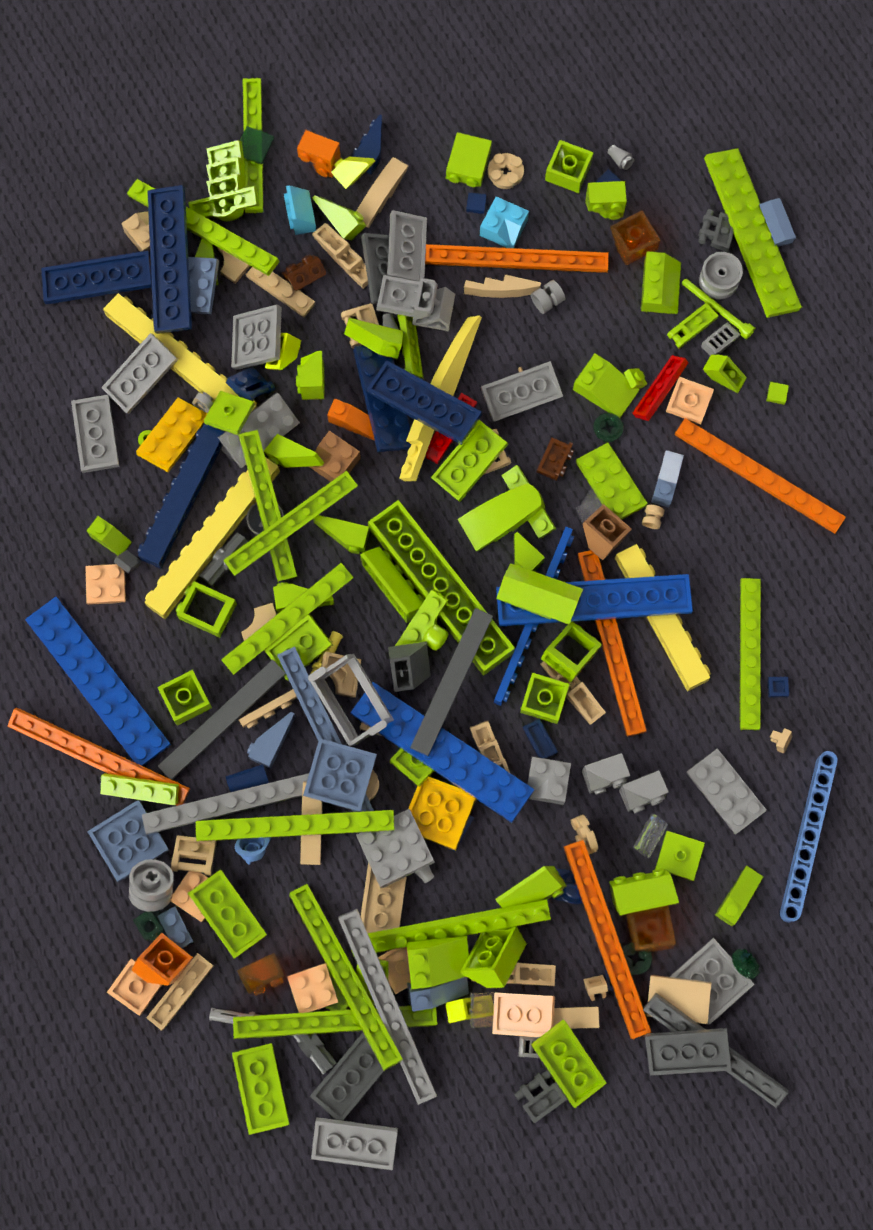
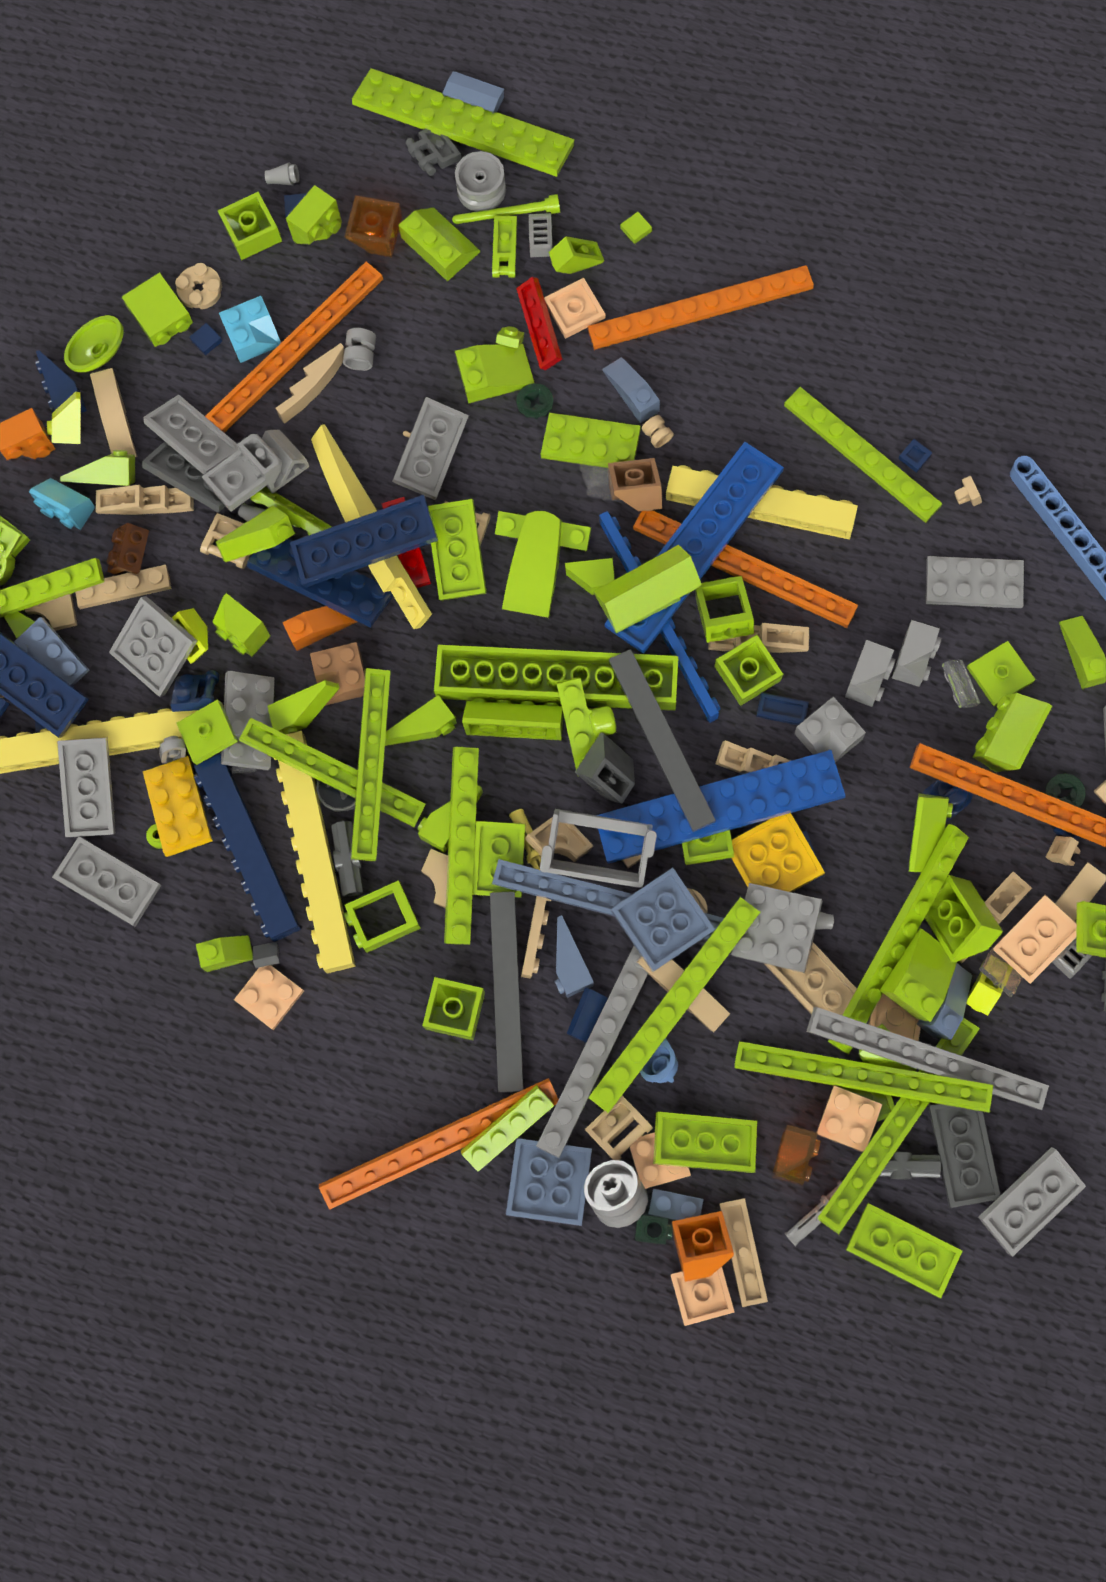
camera: 40 degrees left, 0 degrees up
(98, 682) = (361, 1083): blue plate -> none
(413, 142) = (94, 344): none -> lime dish
(554, 459) = (523, 472): reddish brown bracket -> none
(580, 825) = (907, 739): tan plate -> none
(651, 929) = (1053, 754): clear orange slope -> none

